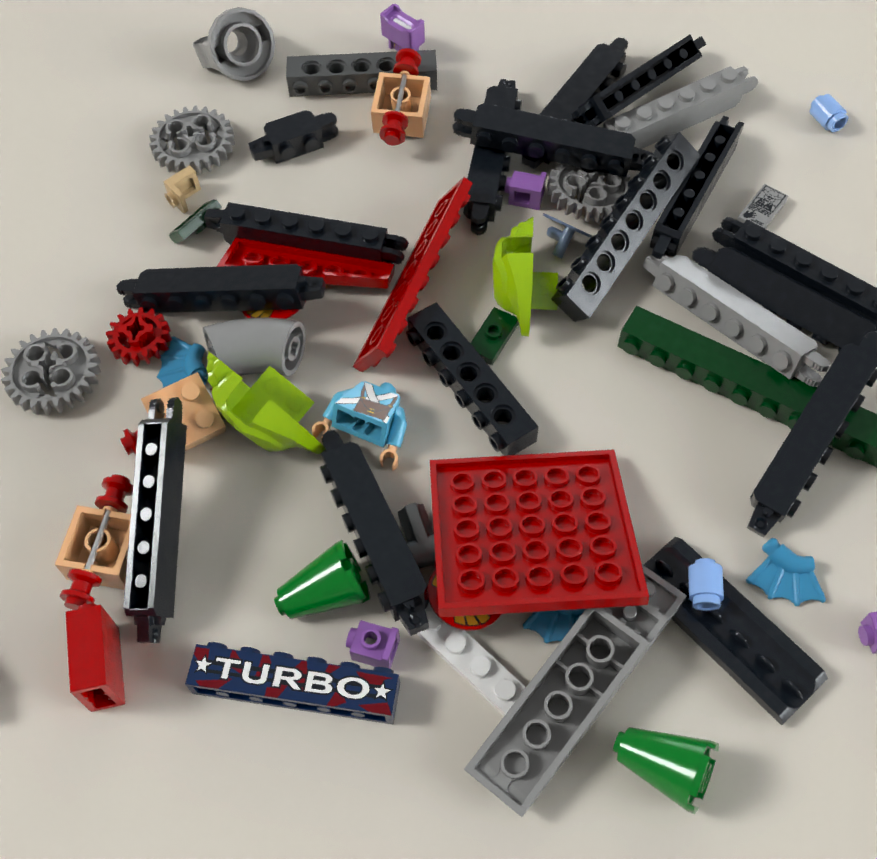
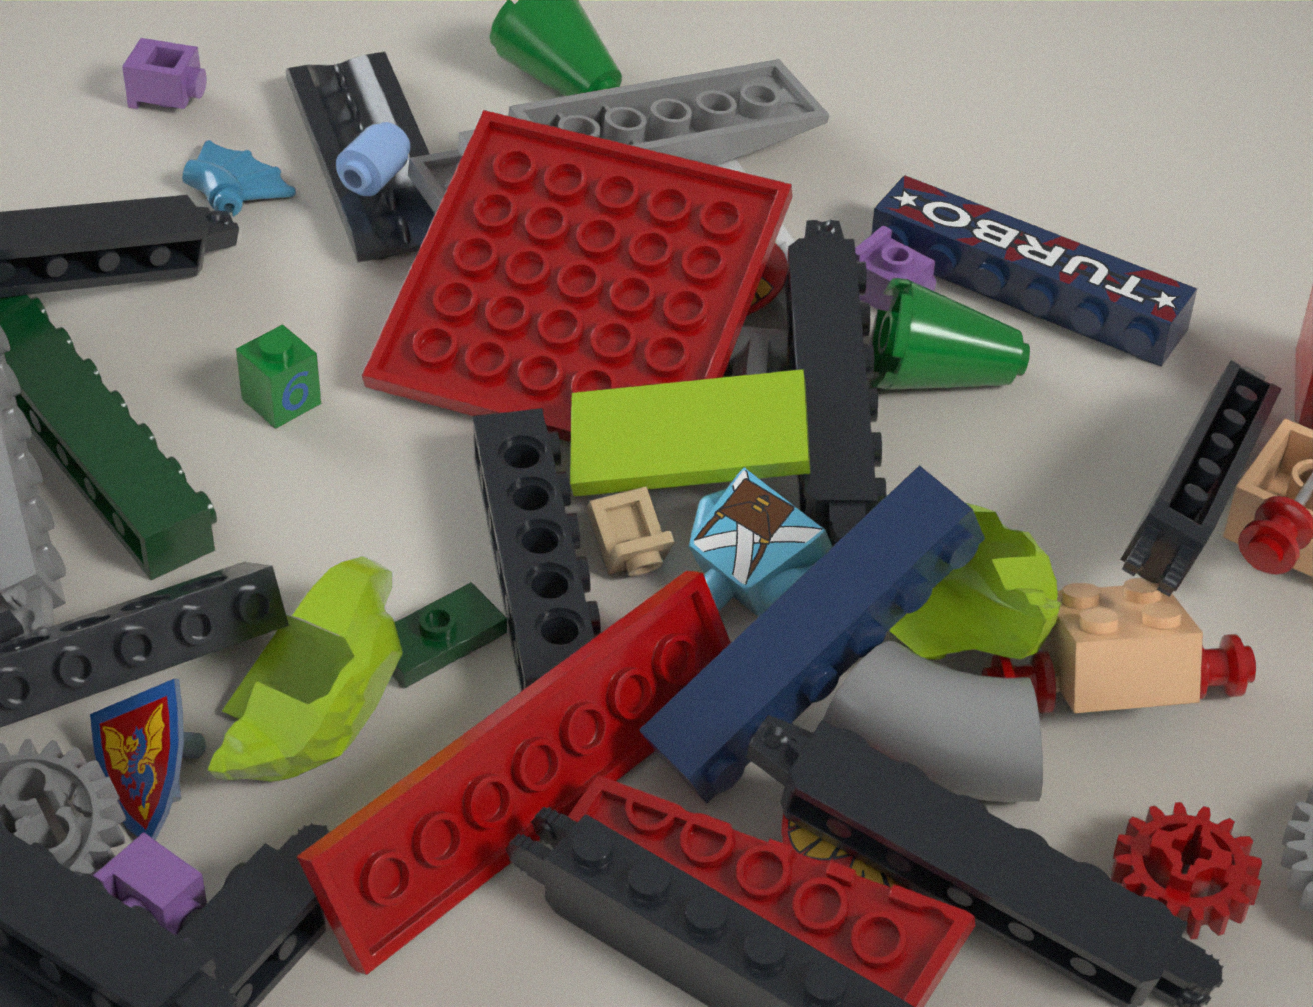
camera: 160 degrees left, 15 degrees down
(181, 361) = (1098, 793): dark azure arm -> none
(313, 346) = (815, 631): none -> dark blue brick
(427, 455) = (689, 433): none -> lime tile
(432, 407) = (629, 532): none -> tan bracket
(651, 428) = (278, 376): none -> green brick

